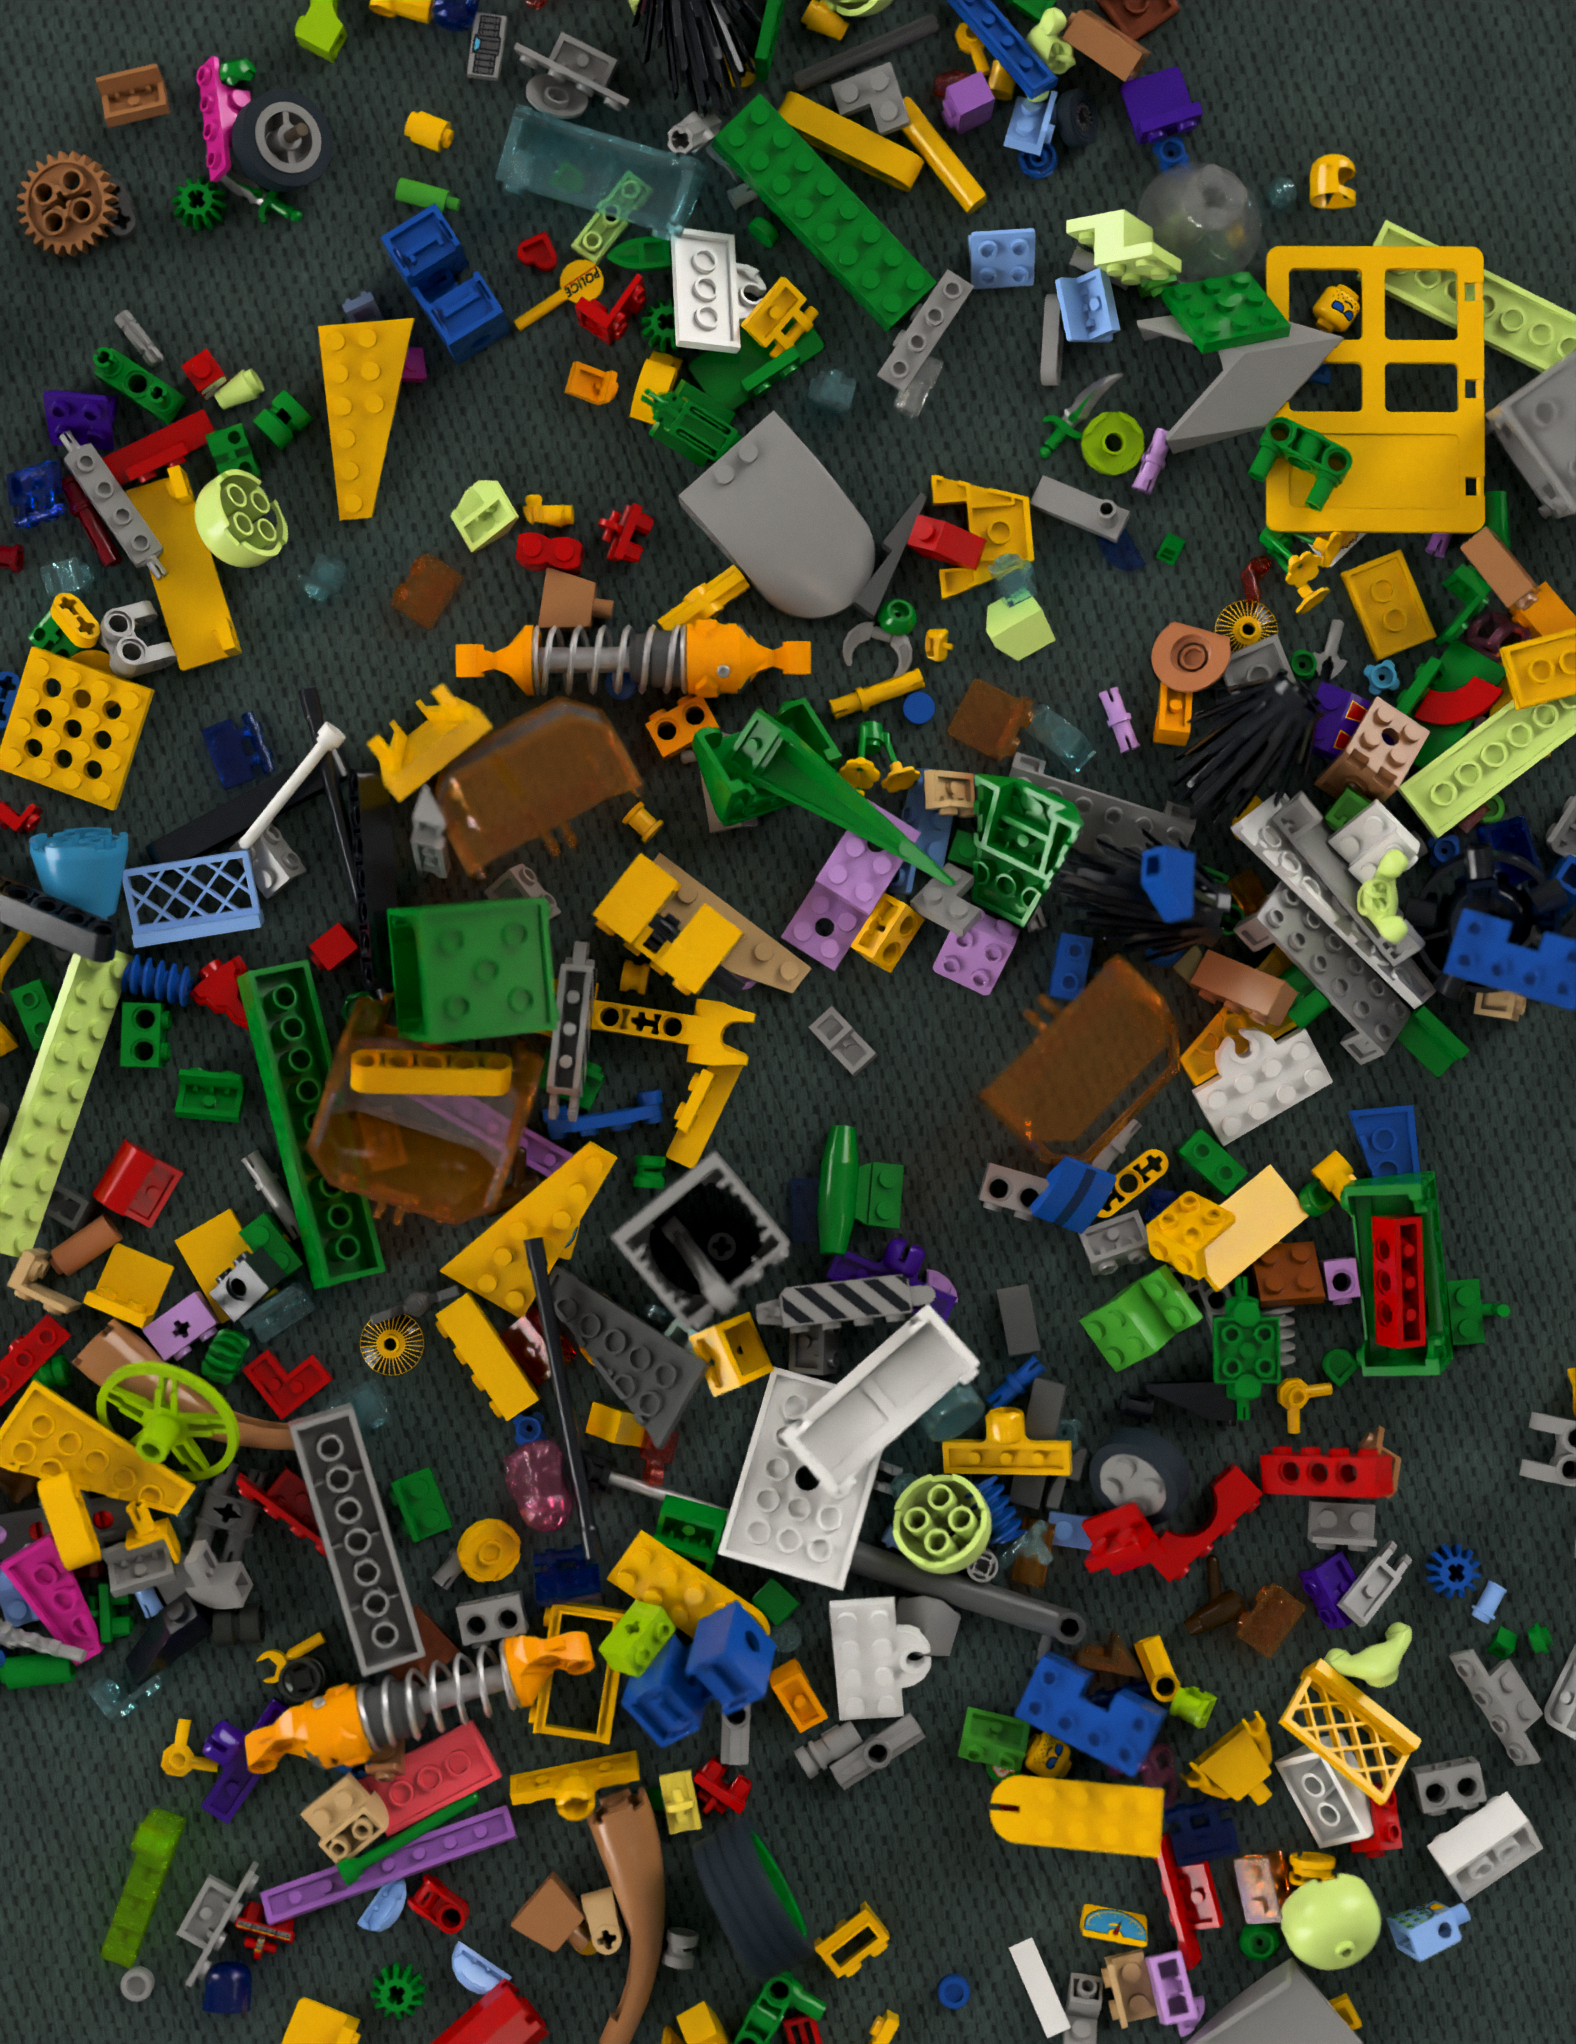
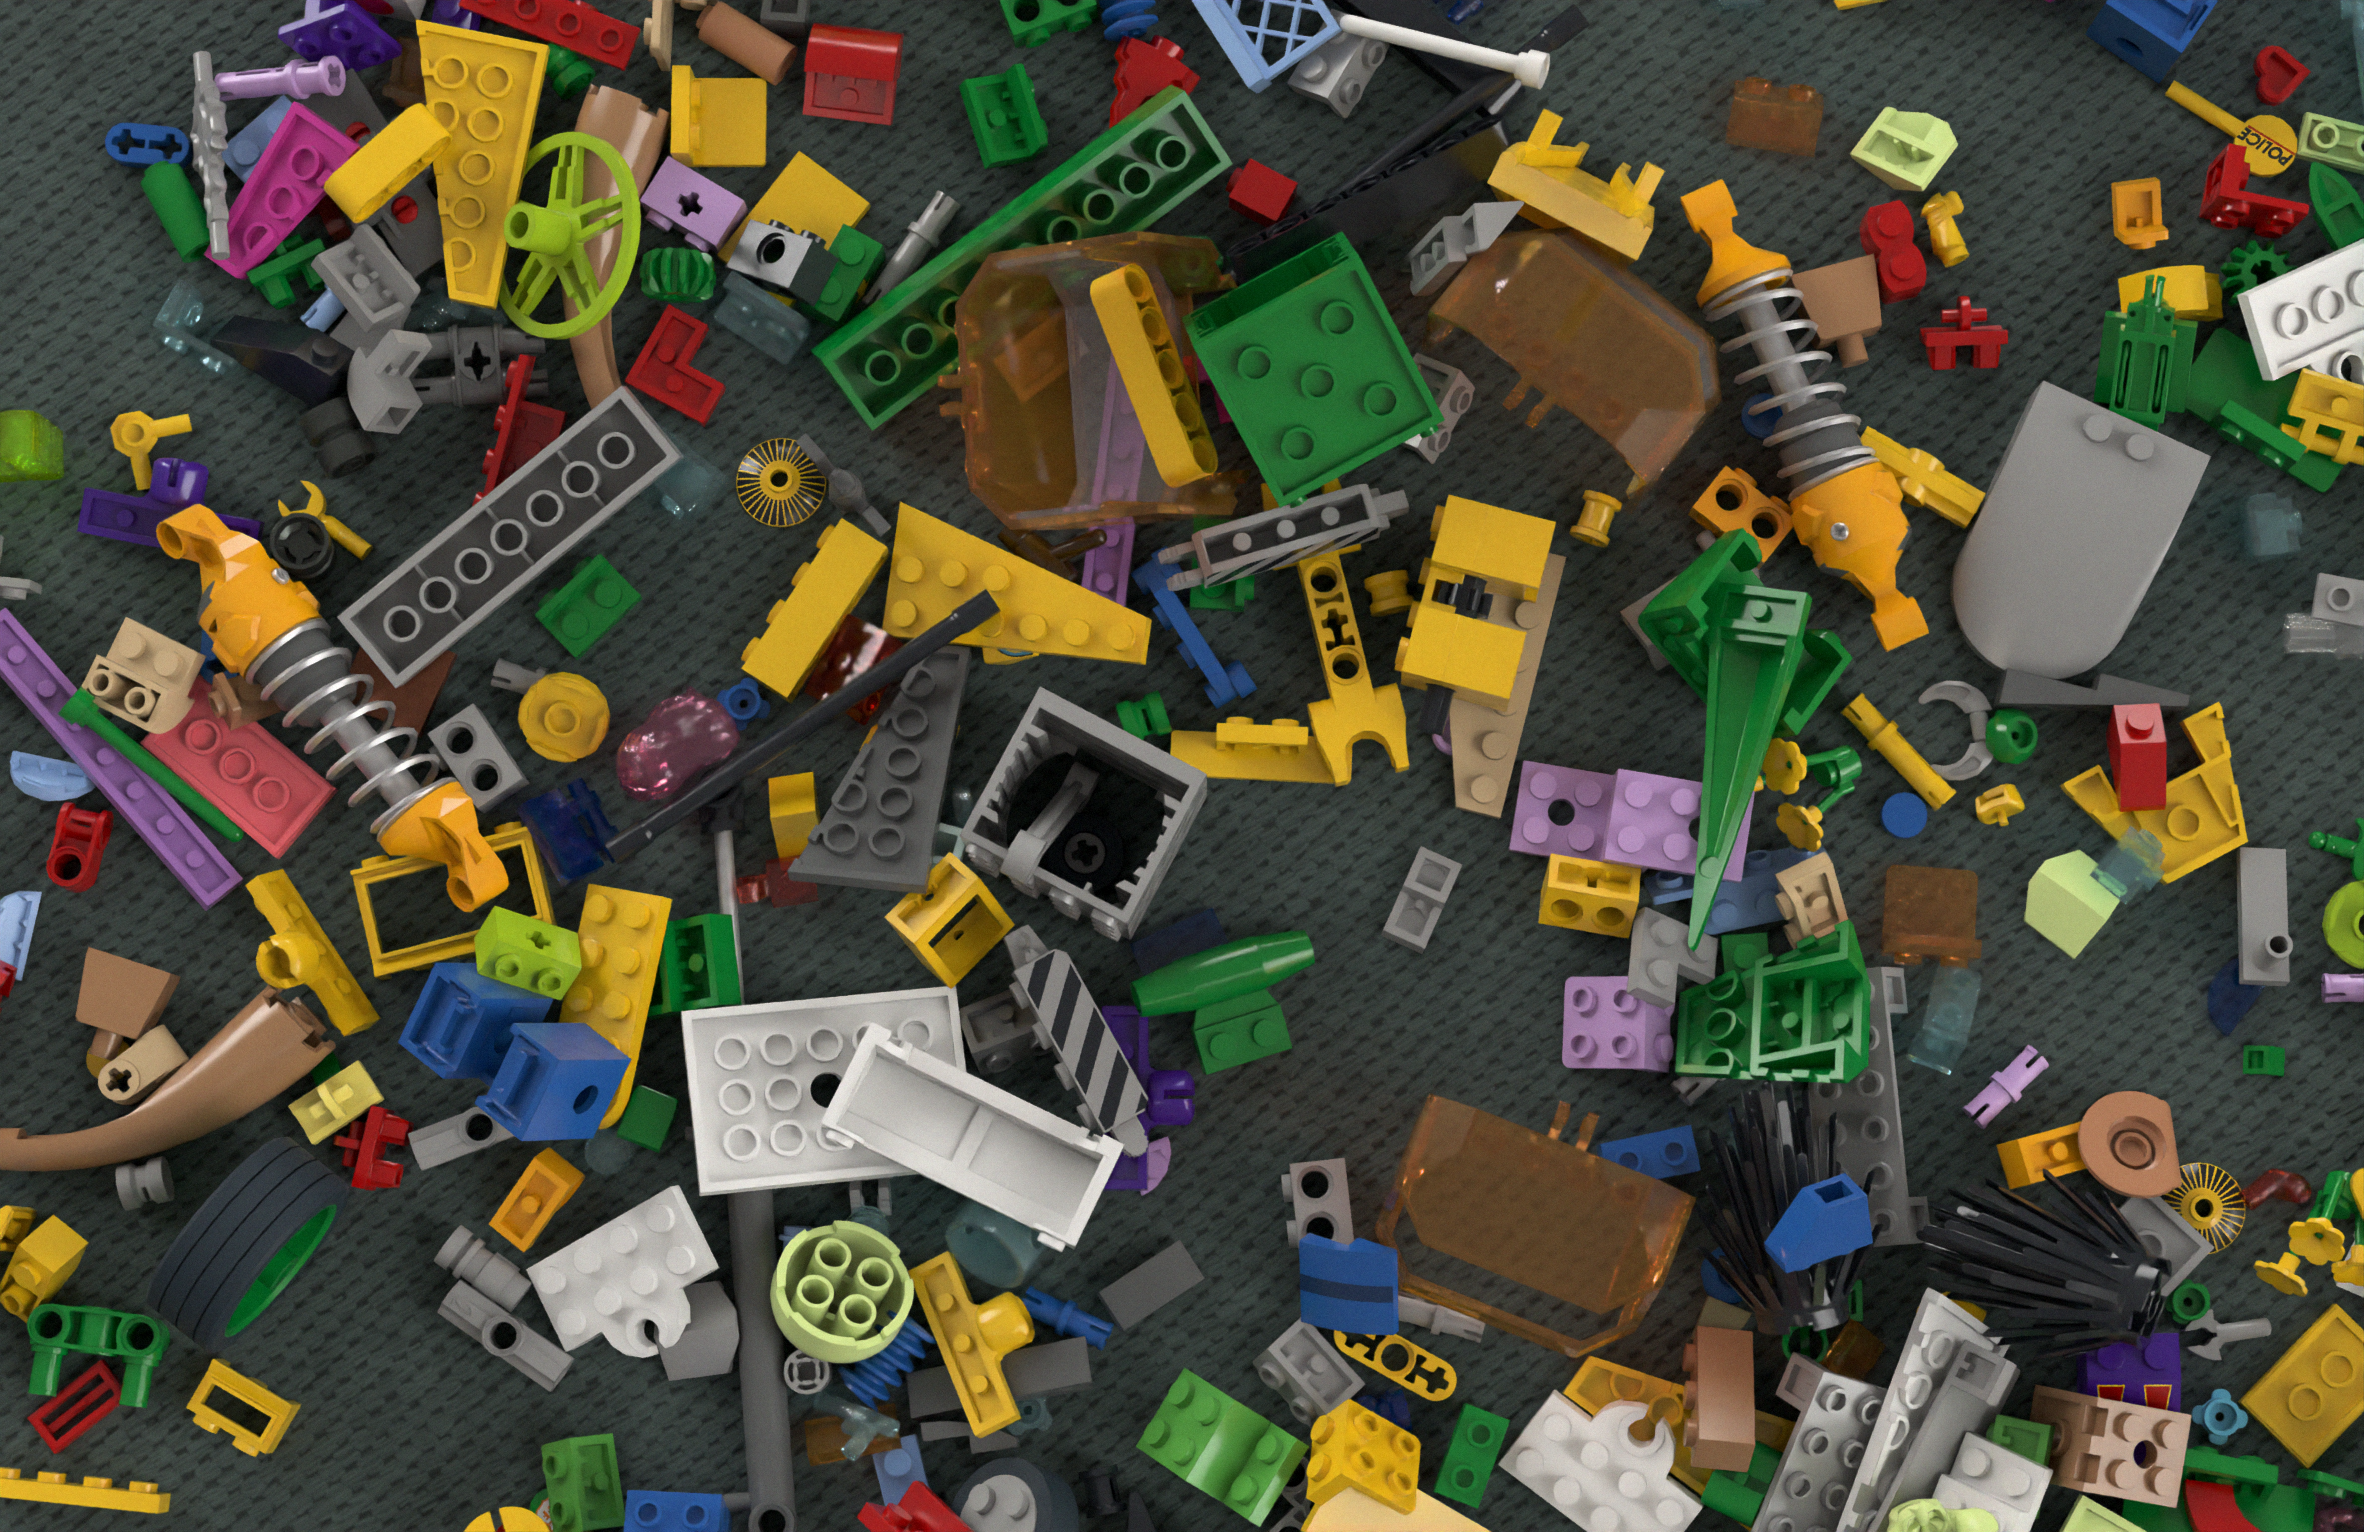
camera: 70 degrees right, 5 degrees down
(150, 1531) = (414, 271): yellow bracket -> none

